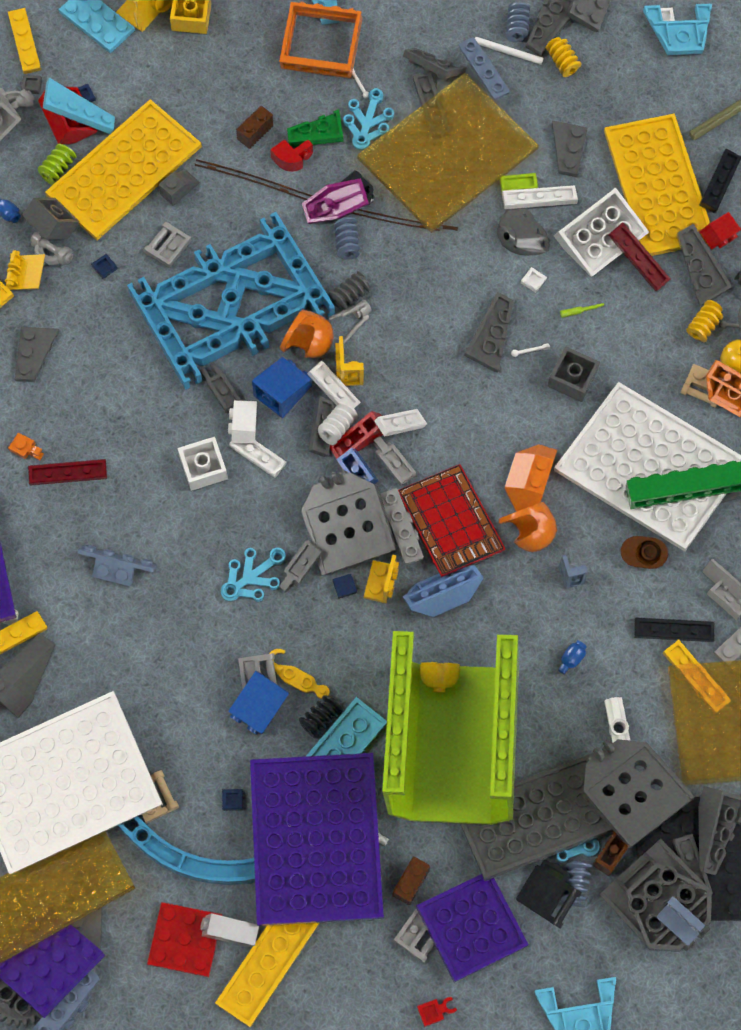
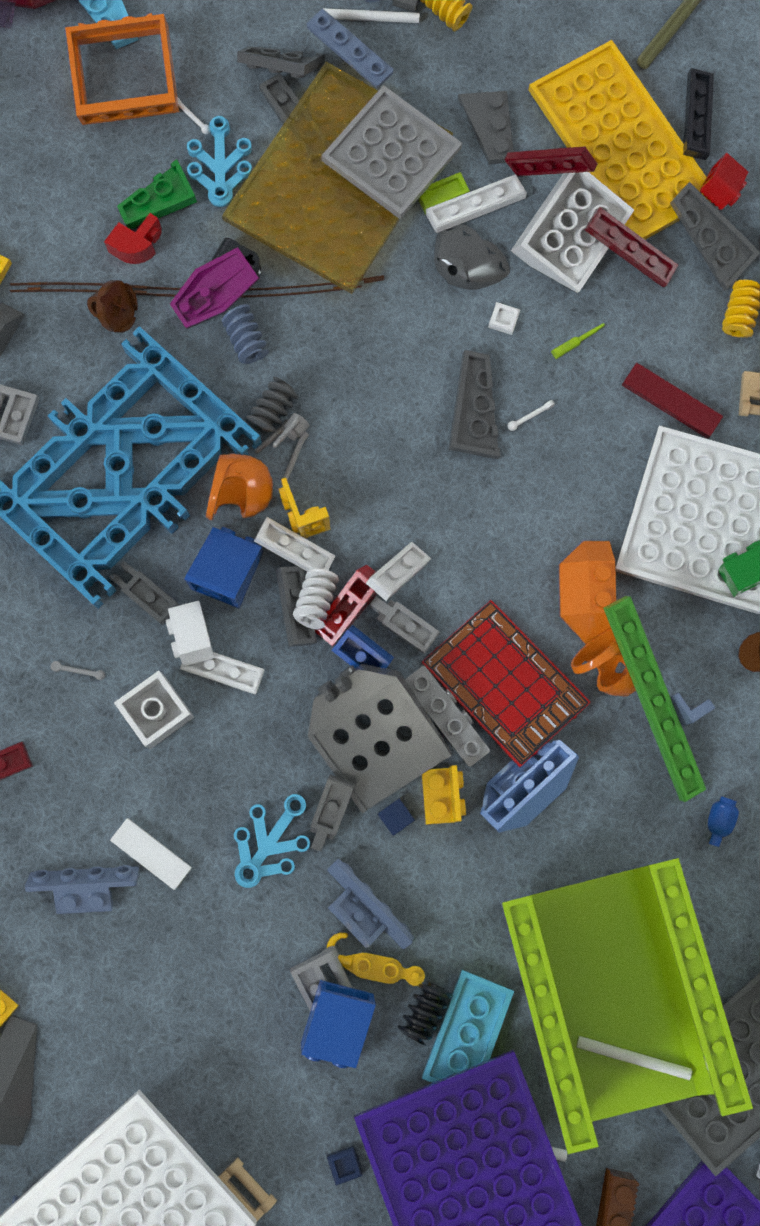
camera: 20 degrees left, 10 degrees up
(144, 418) = (57, 666): none -> light grey hinge
(168, 558) = (151, 854): none -> white tile
(255, 127) = (73, 216): reddish brown brick -> none
(263, 193) = (114, 306): none -> reddish brown tile
(301, 638) = (363, 912): none -> sand blue bracket
(439, 675) = (565, 909): yellow cylinder -> none
(454, 785) = (634, 1058): none -> white bar
(490, 145) = (391, 152): none -> light grey plate
(548, 556) = (654, 698): none -> bright green tile
(573, 374) = (600, 433): dark grey brick -> none
(597, 182) = (551, 161): none -> dark red tile
(635, 369) = (672, 400): none -> dark red tile

